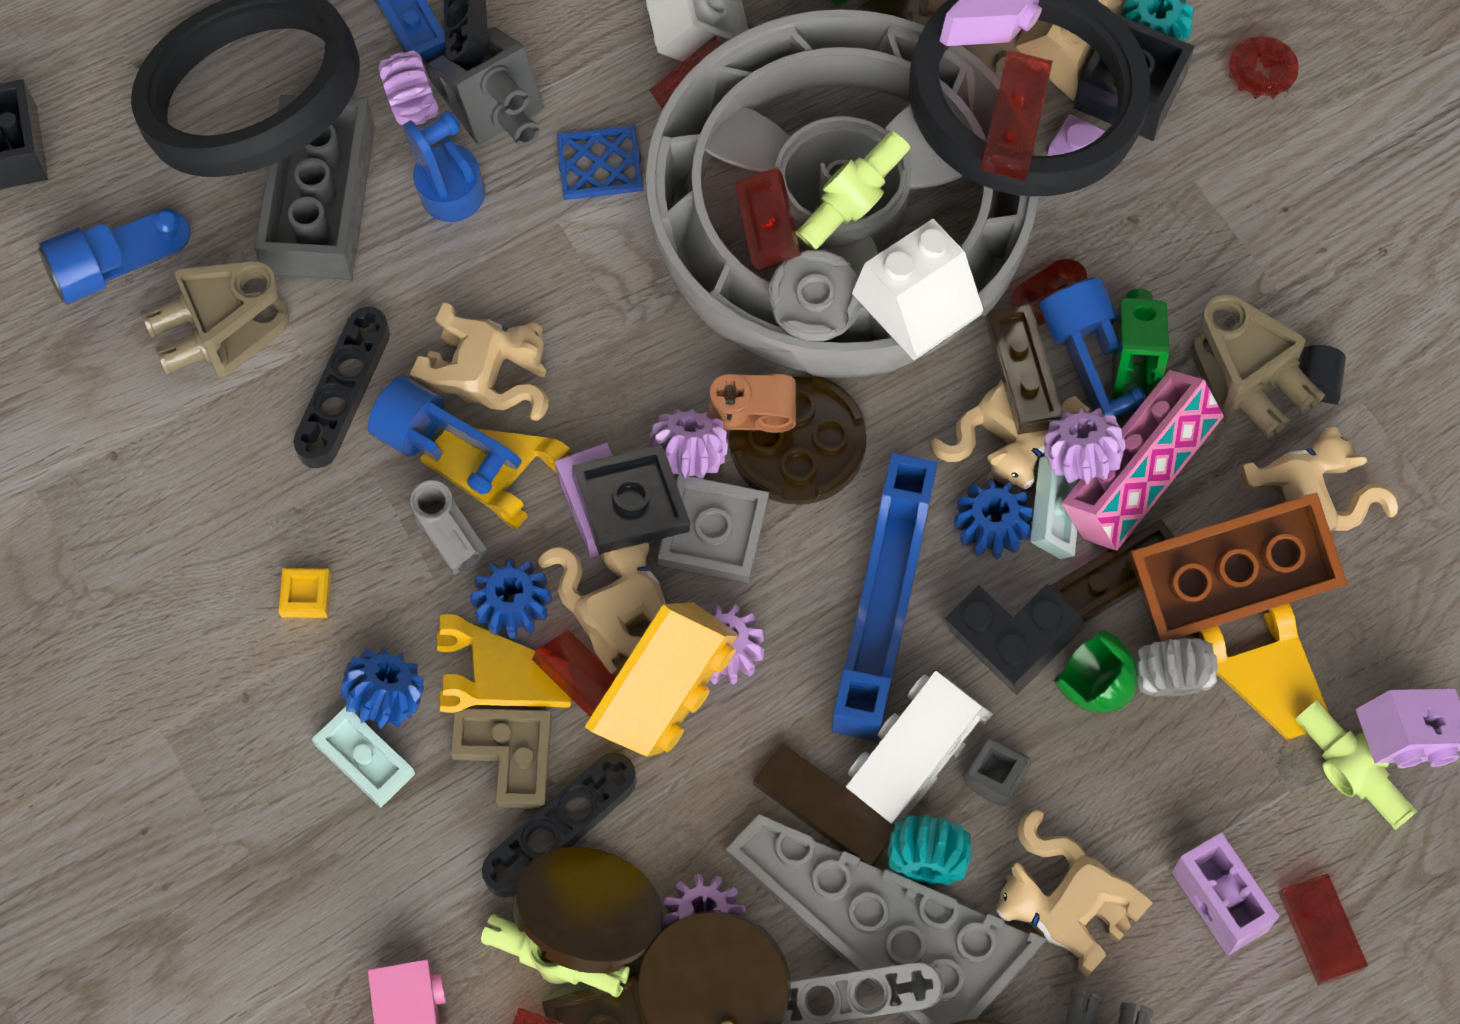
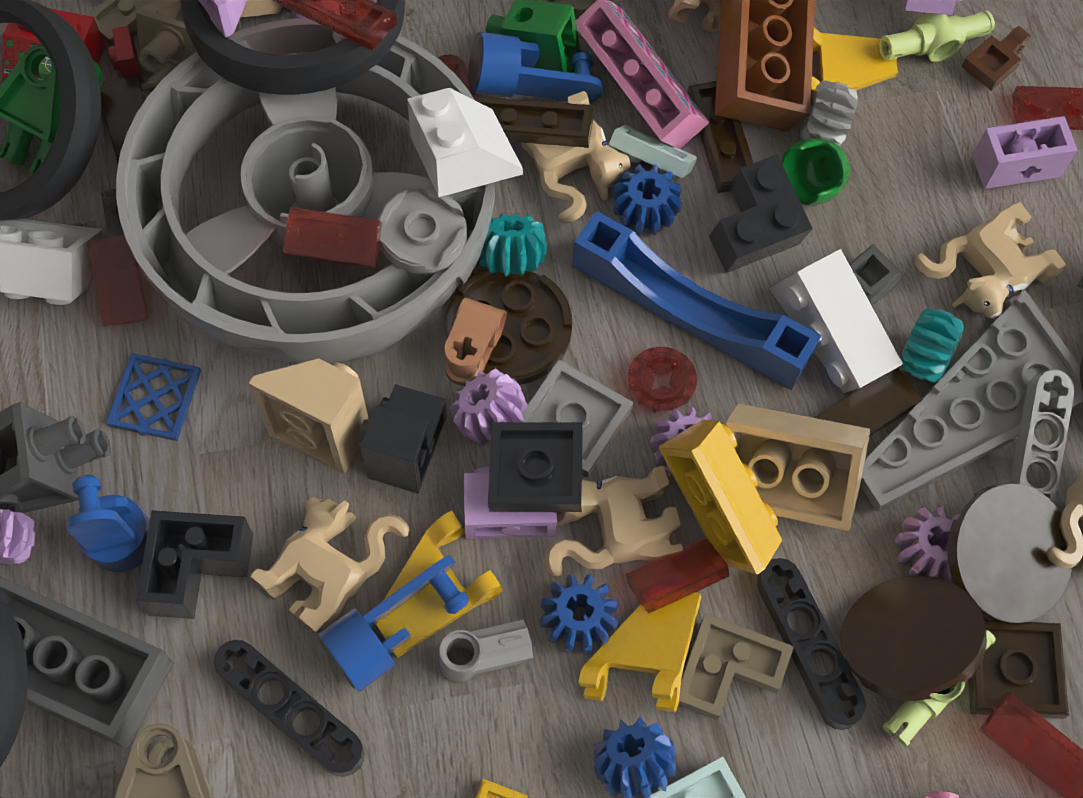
camera: 75 degrees left, 0 degrees up
(441, 238) = (182, 549): none -> black brick
(611, 292) = (313, 409): none -> tan slope
(627, 383) = (402, 437): none -> black brick
(737, 747) = (802, 463): none -> tan slope
(783, 582) = (661, 362): none -> clear red gear
(853, 190) = (340, 156): yellowish green pin -> none
(878, 404) = (514, 245): none -> teal gear
(1084, 445) = (627, 97): lavender gear -> none
(1352, 839) = (995, 59): none -> reddish brown plate

